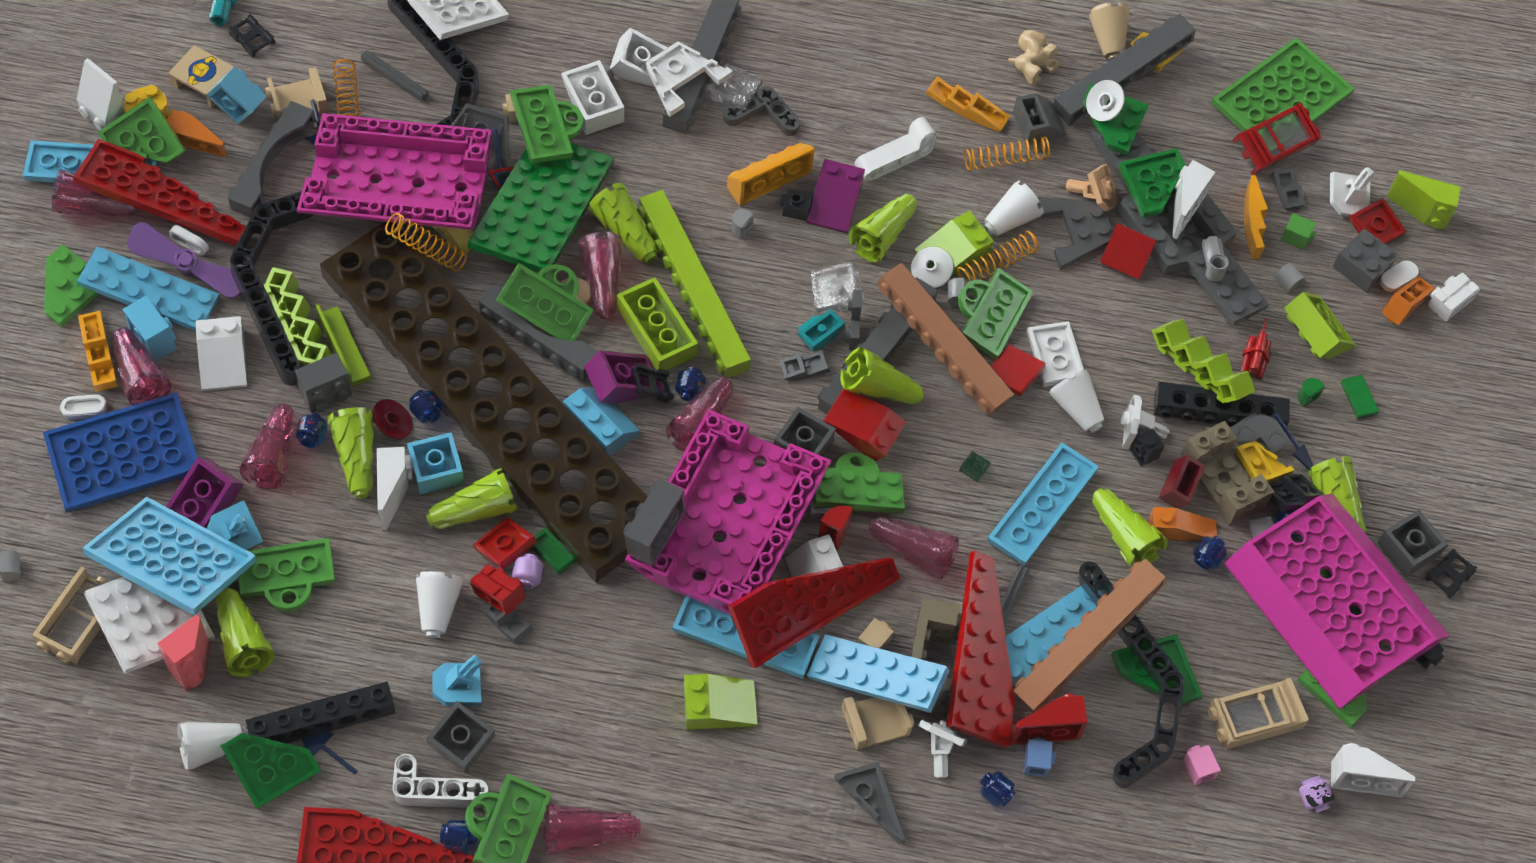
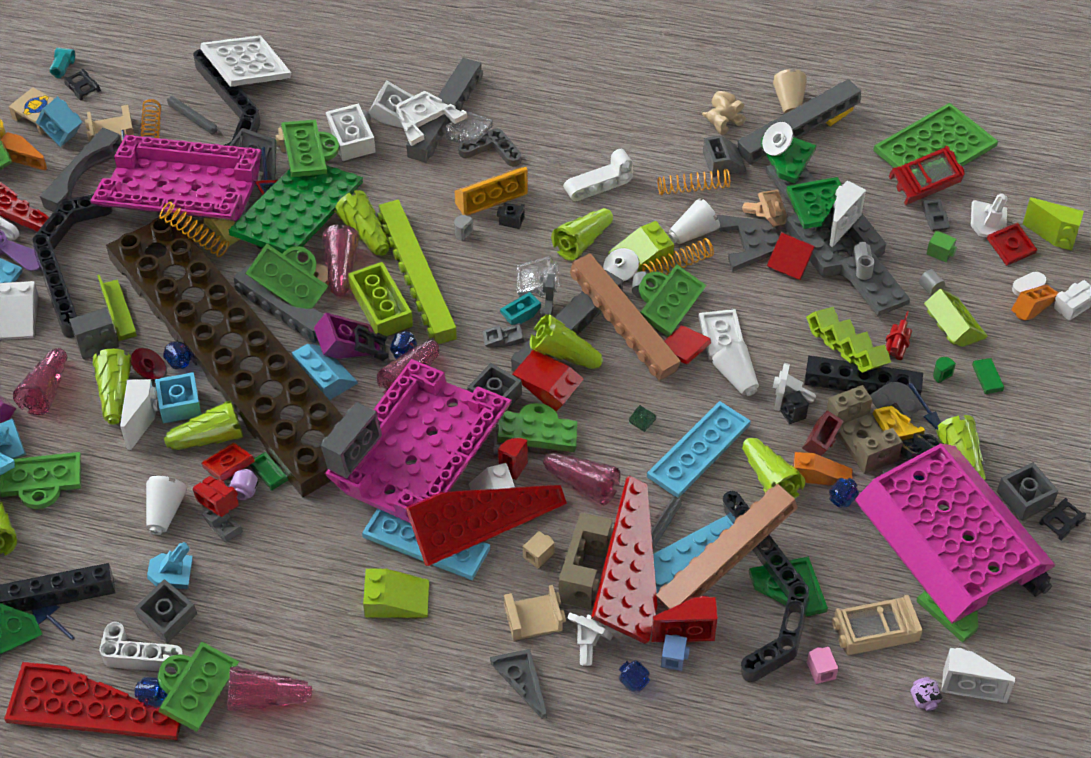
camera: 10 degrees right, 10 degrees down
(293, 314) = (79, 281): lime brick -> none
(311, 430) = (79, 370): clear blue head -> none
(836, 196) = (545, 208): magenta slope -> none
(878, 673) = (535, 573): medium azure plate -> none
(965, 104) = (669, 148): light orange slope -> none
(1254, 214) = (904, 235): light orange slope -> none
(1365, 260) = (998, 269): dark grey brick -> none

